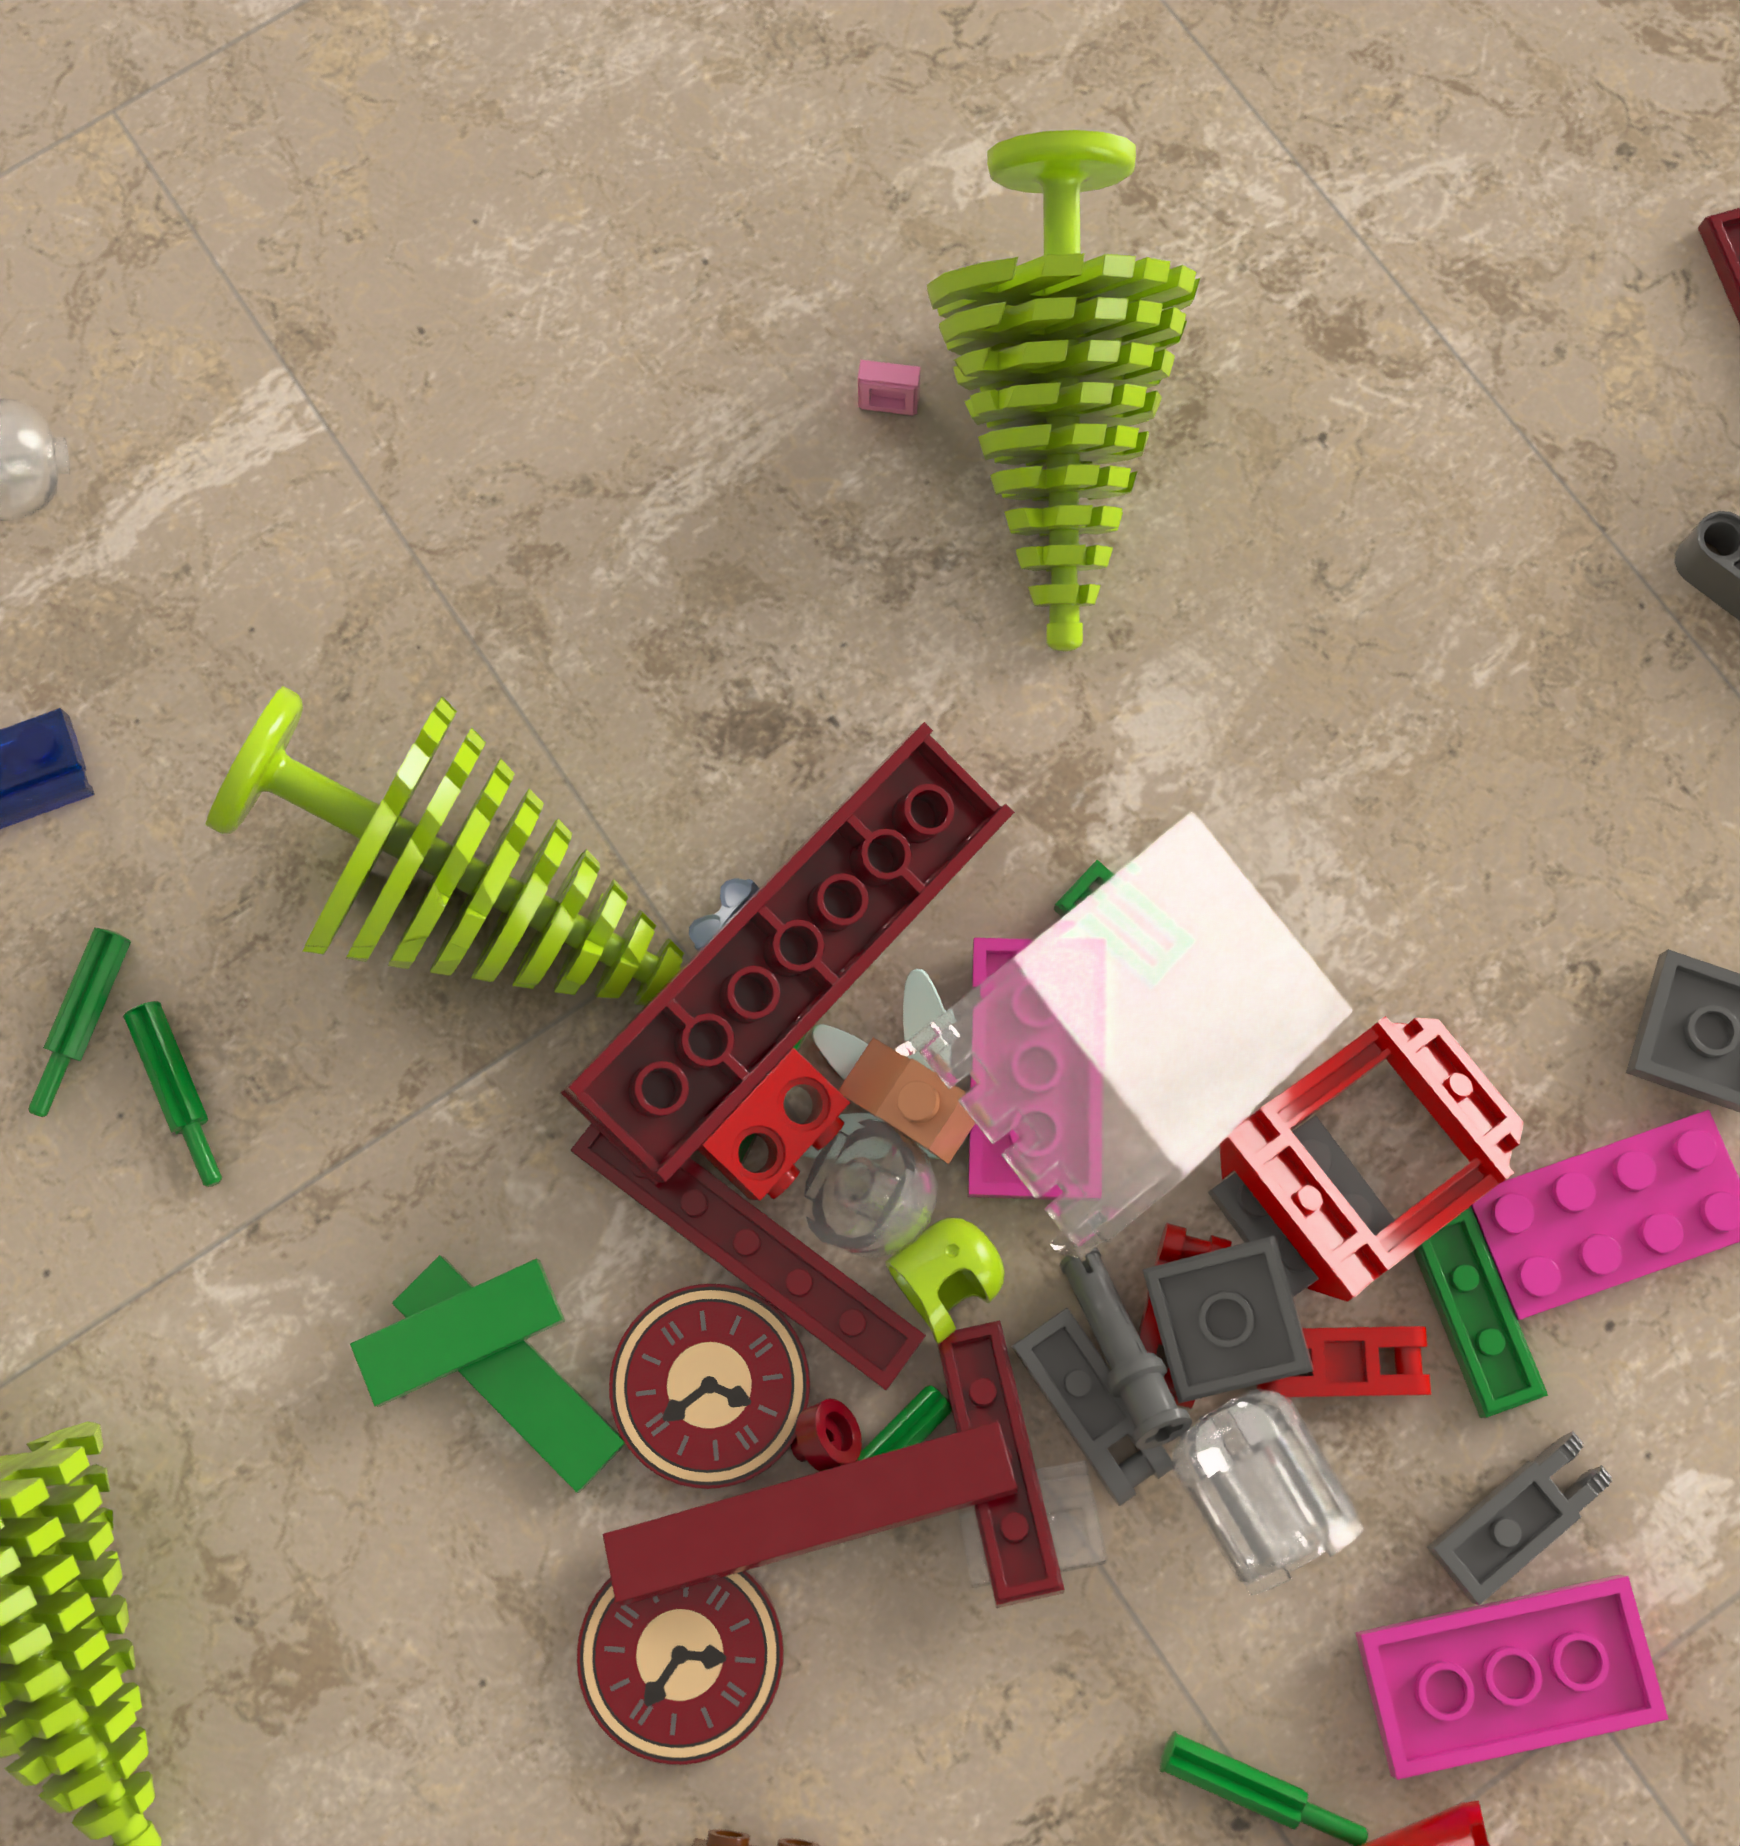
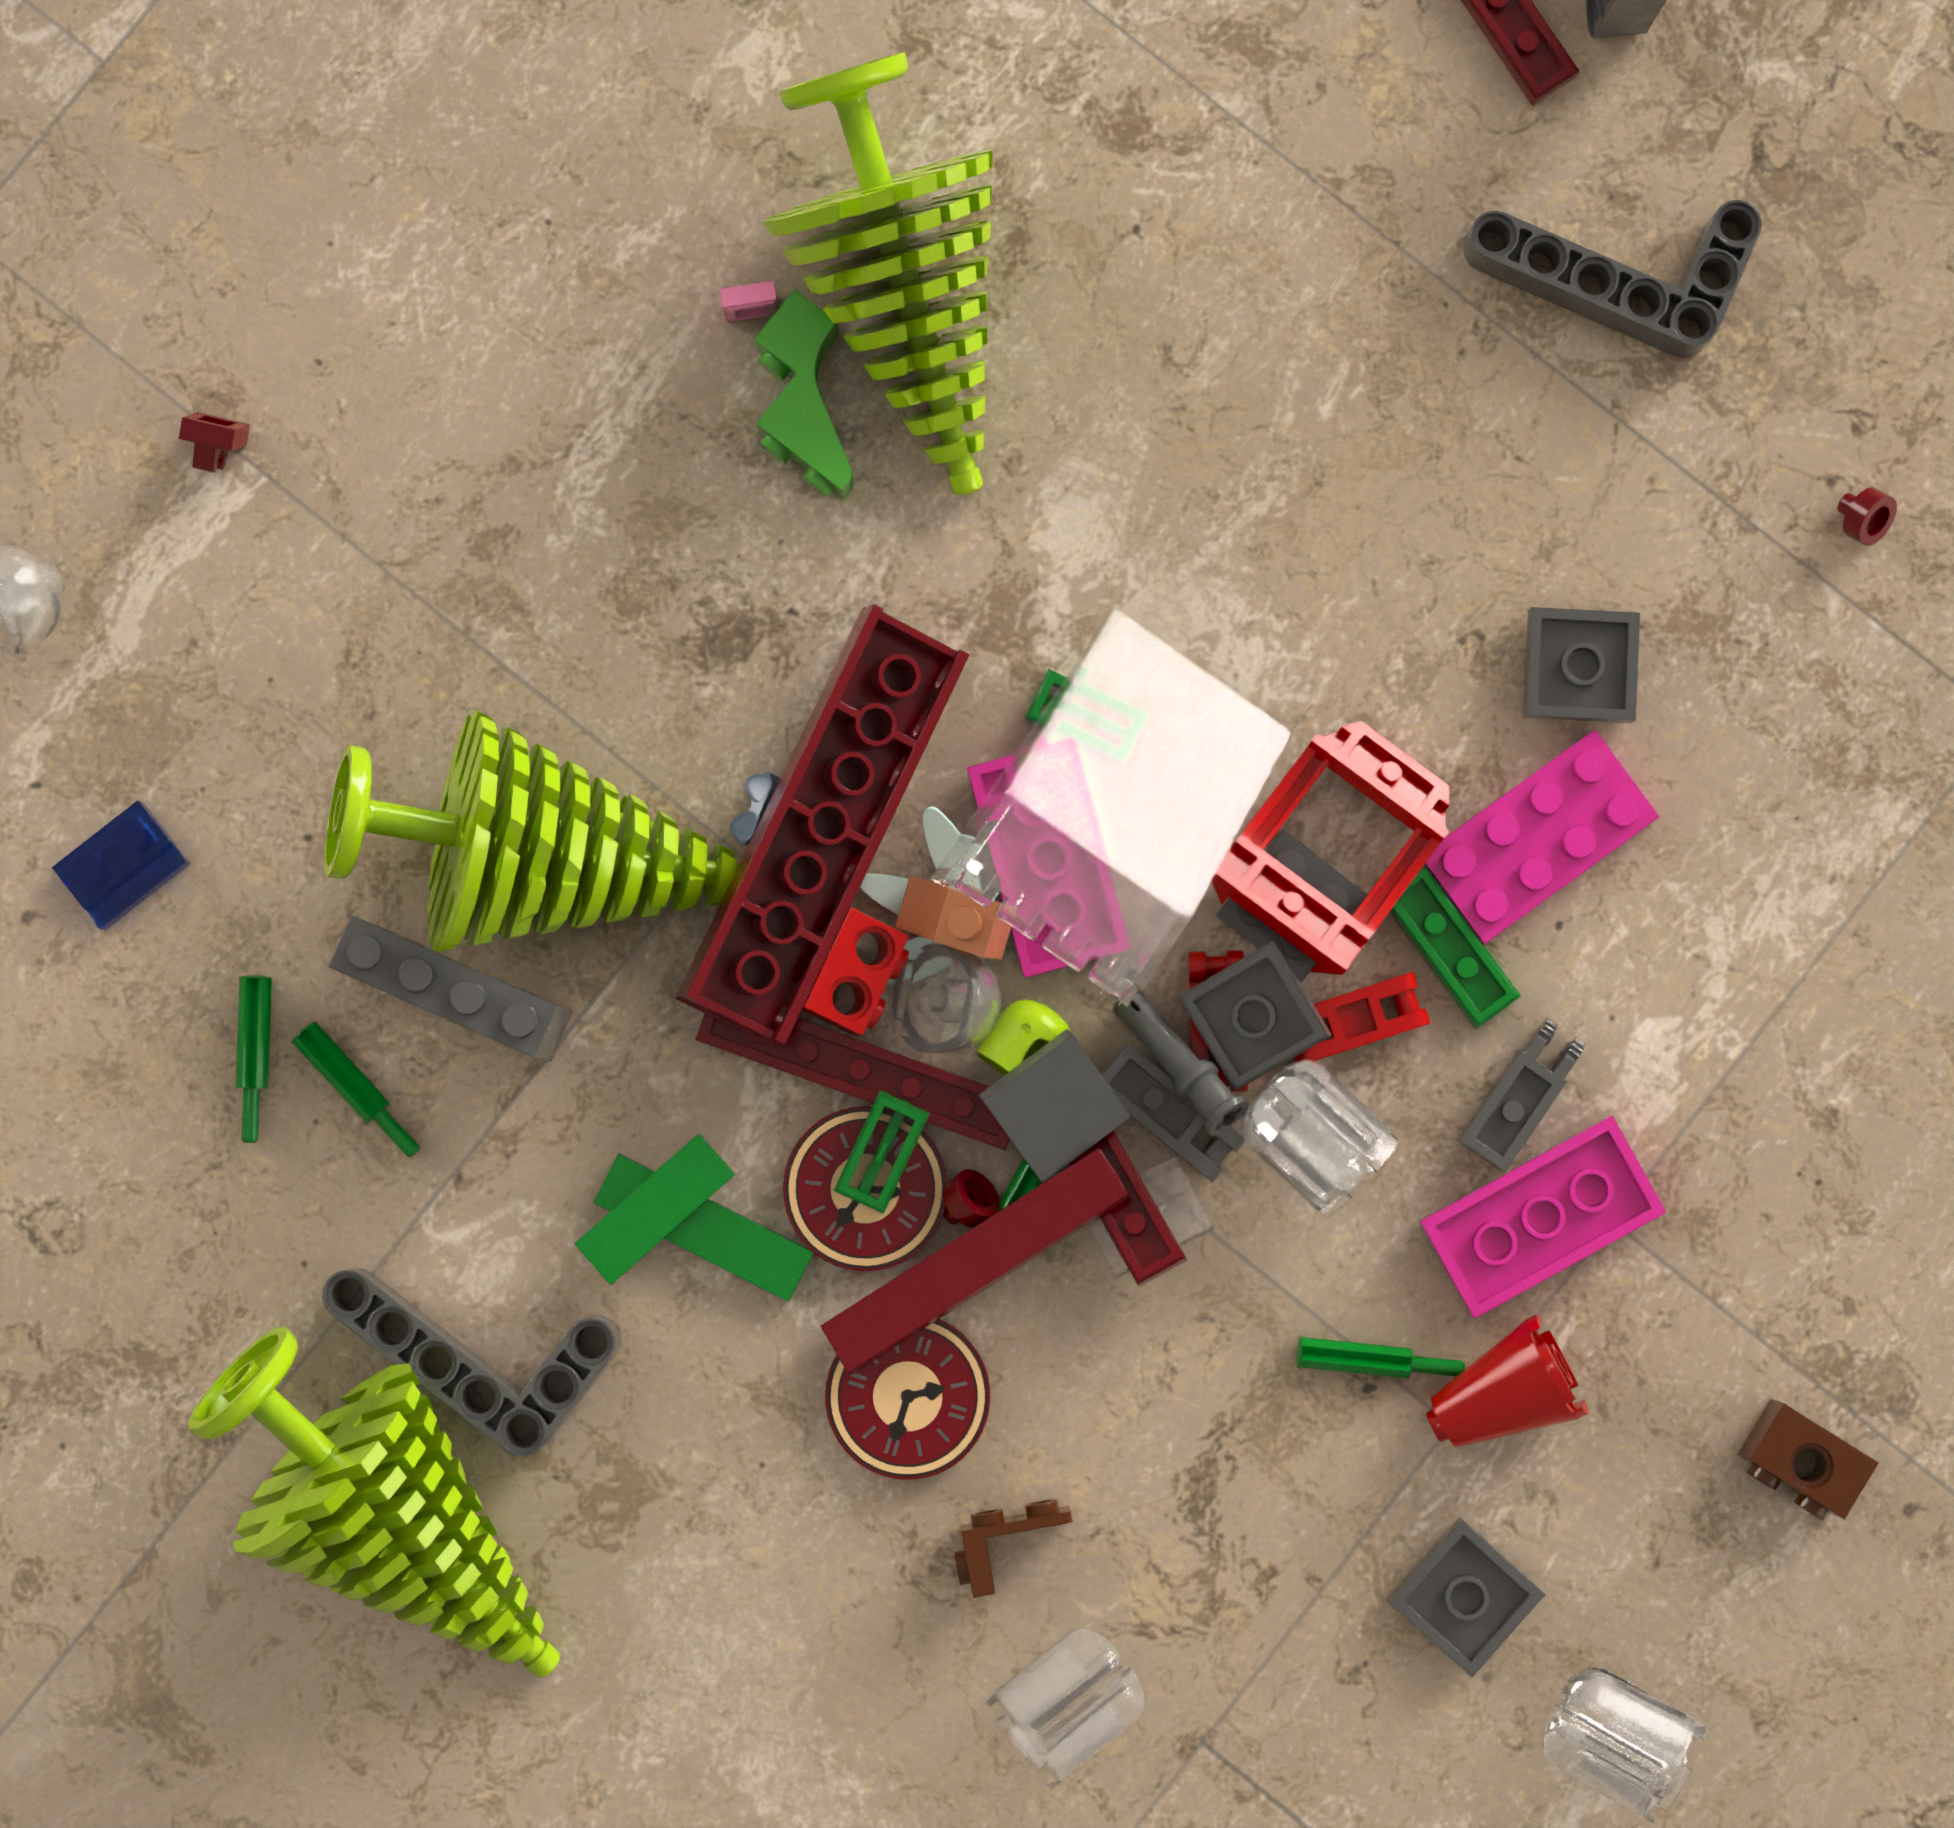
camera: 20 degrees left, 10 degrees up
(181, 1452) = (468, 1367): none -> dark grey beam
(279, 368) = (212, 439): none -> dark red tile
(310, 1005) = (450, 989): none -> dark grey arch
(779, 1303) = (902, 1109): none -> green tile
(900, 519) = (797, 420): none -> bright green arch
(960, 1353) = (1054, 1105): none -> dark grey tile

